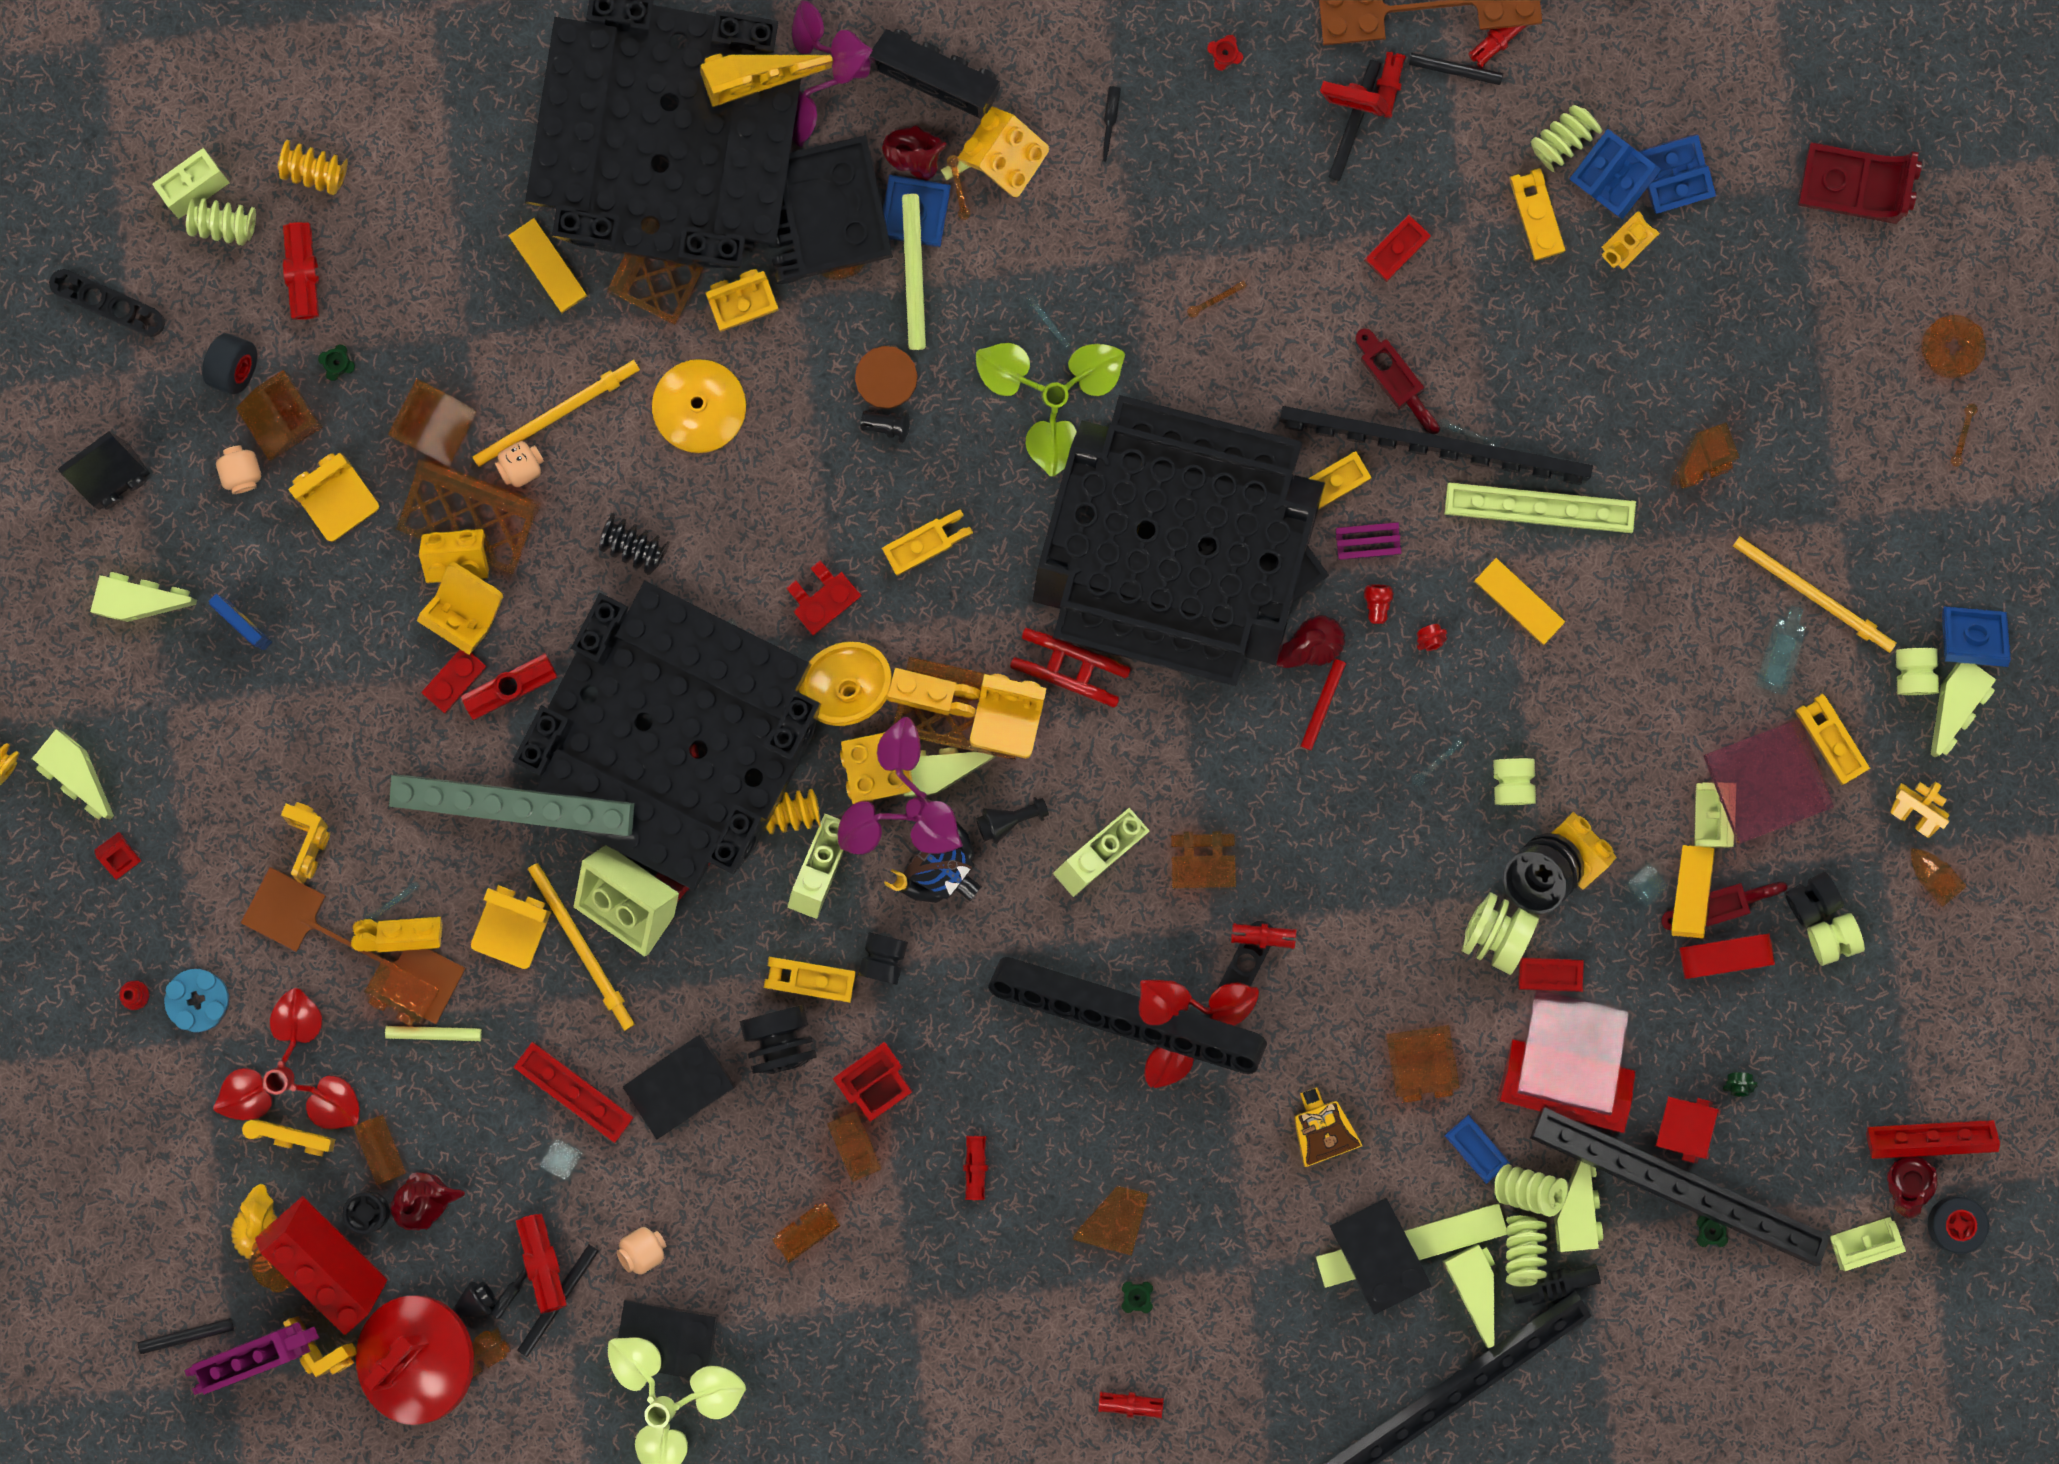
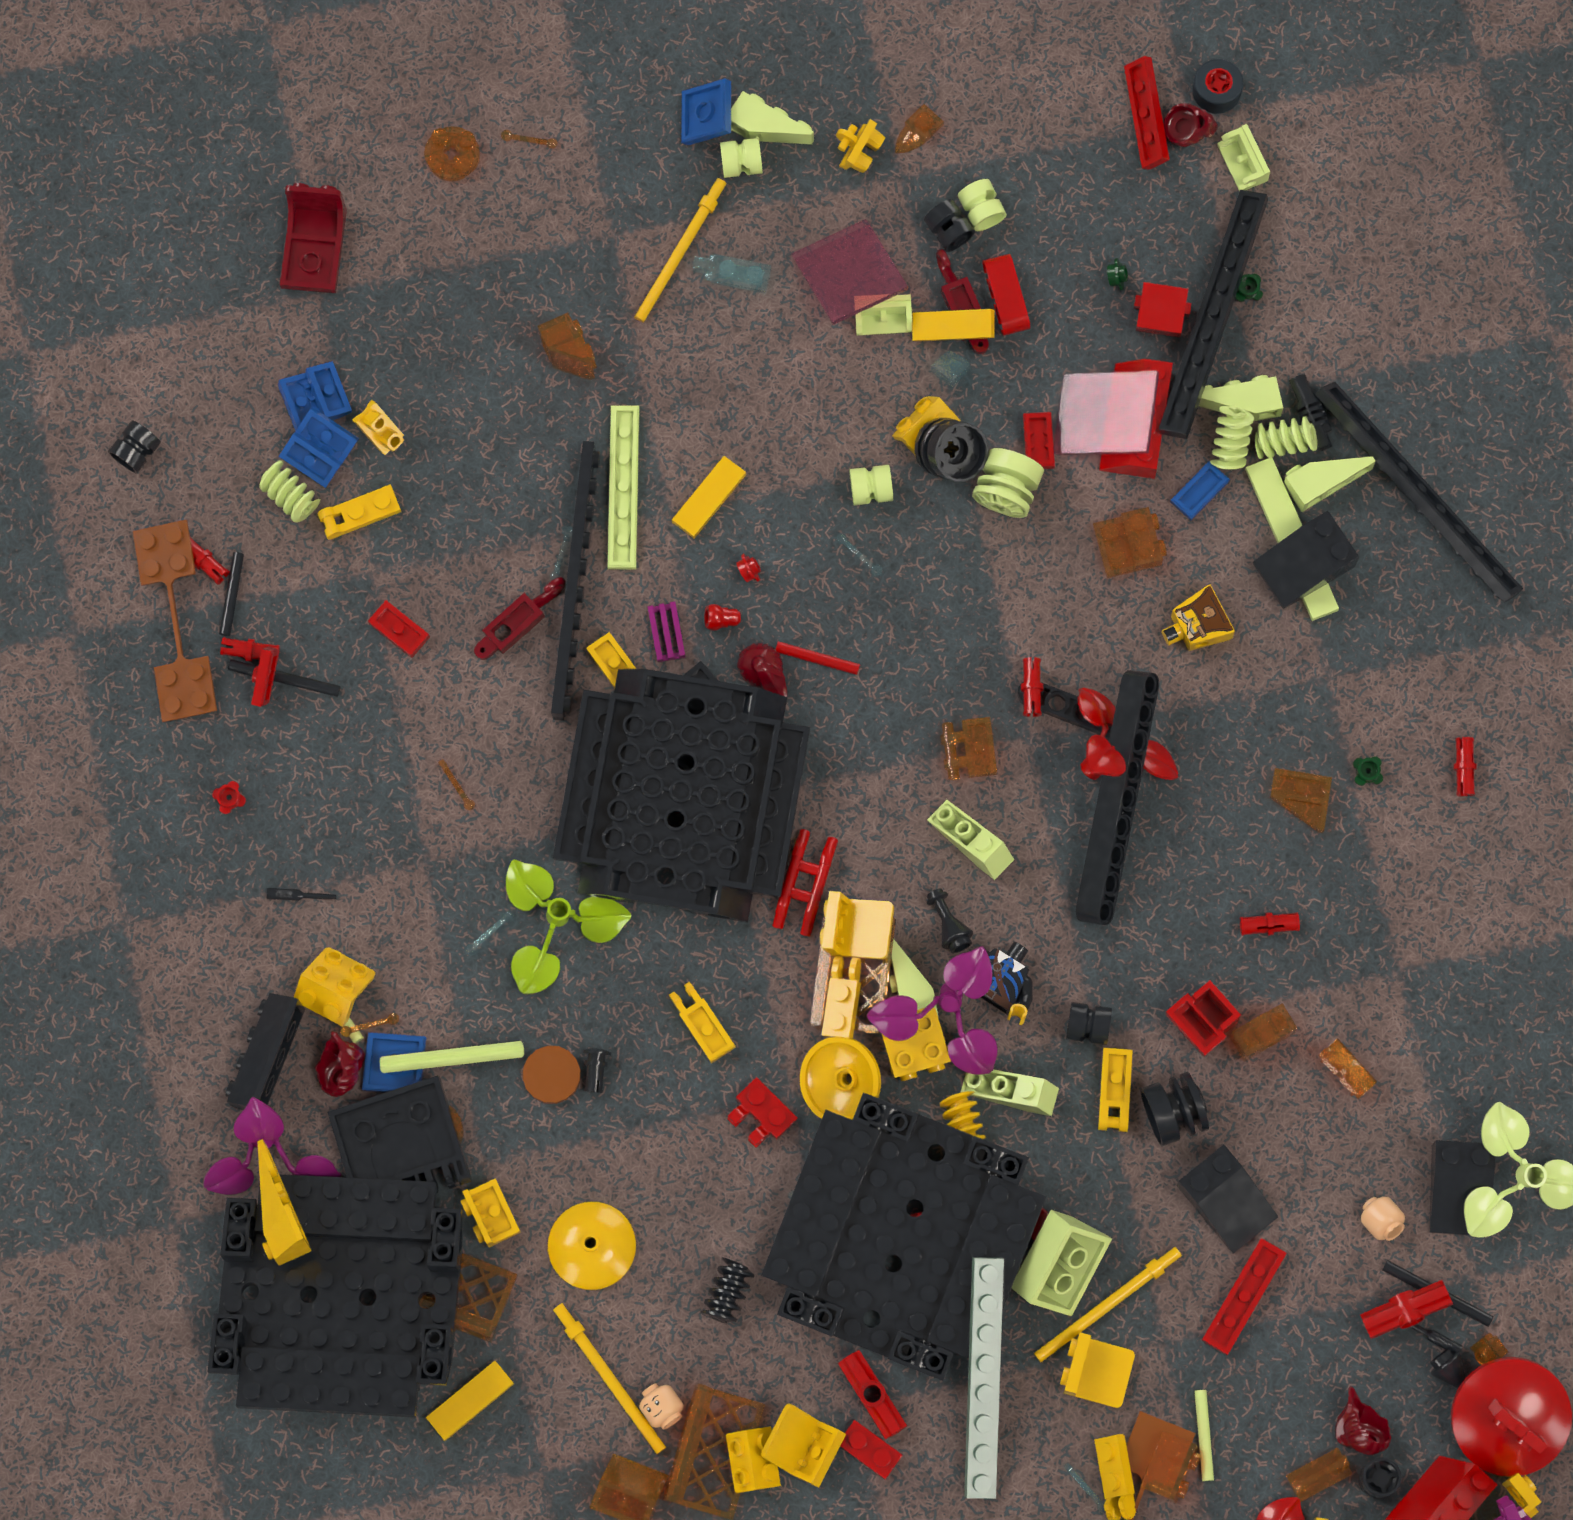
camera: 95 degrees left, 10 degrees down
(561, 1159) = (1307, 1302): clear light blue slope -> none
(1833, 740) = (807, 223): yellow plate -> none

